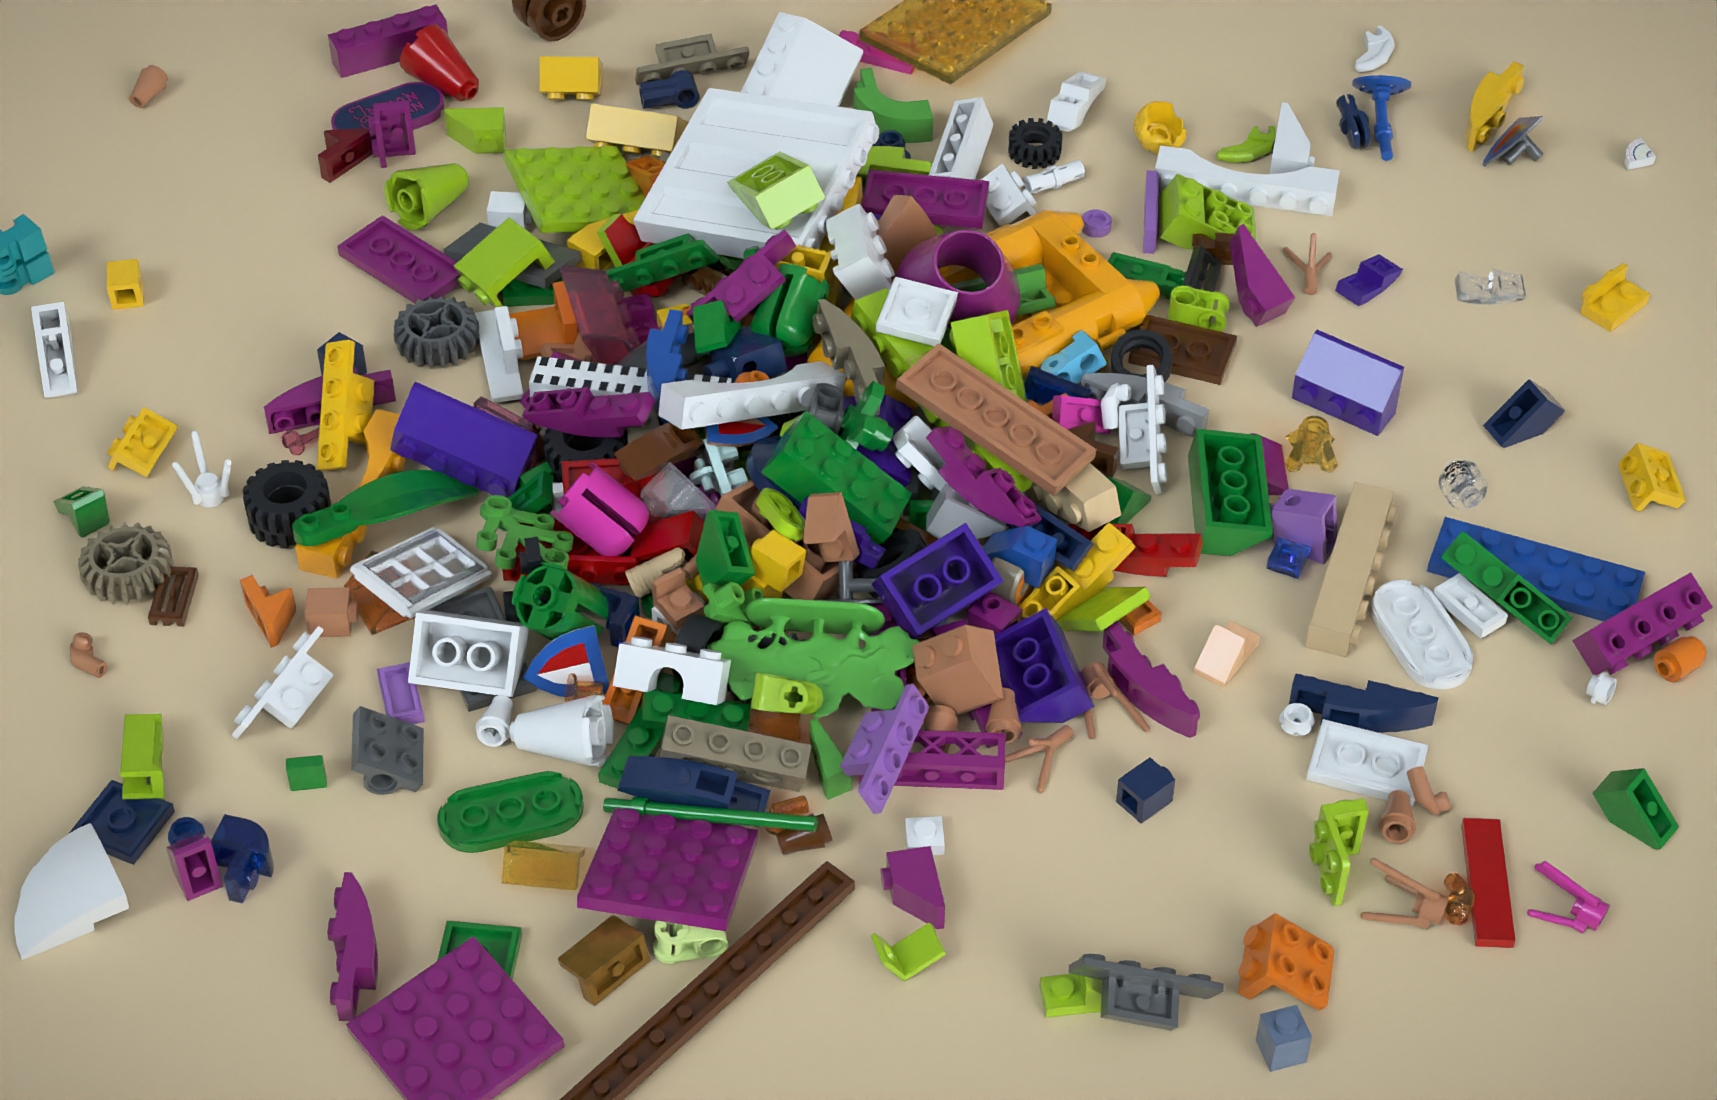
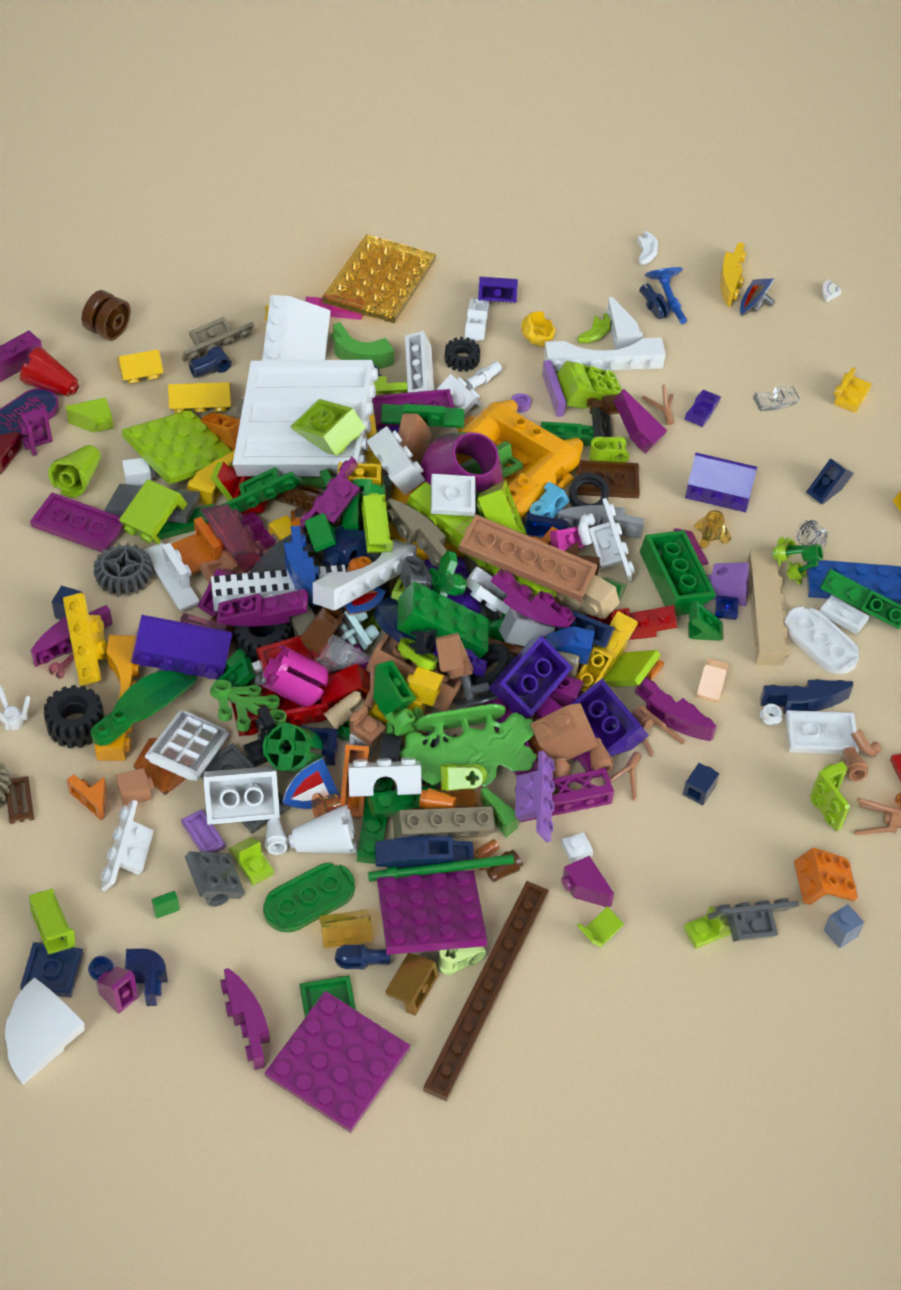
camera: 20 degrees left, 5 degrees up
(451, 746) = (251, 860): none -> lime slope
(544, 905) = (360, 957): none -> dark blue arm
(734, 716) = (436, 800): none -> orange cone
(789, 328) = (376, 524): none -> lime window
(792, 495) = (424, 641): none -> black tile
(939, 206) = (432, 415): none -> green bracket
(1121, 65) = (497, 289): none -> dark purple brick
(1243, 571) = (703, 624): none -> green slope
(1418, 495) = (787, 548): none -> plant

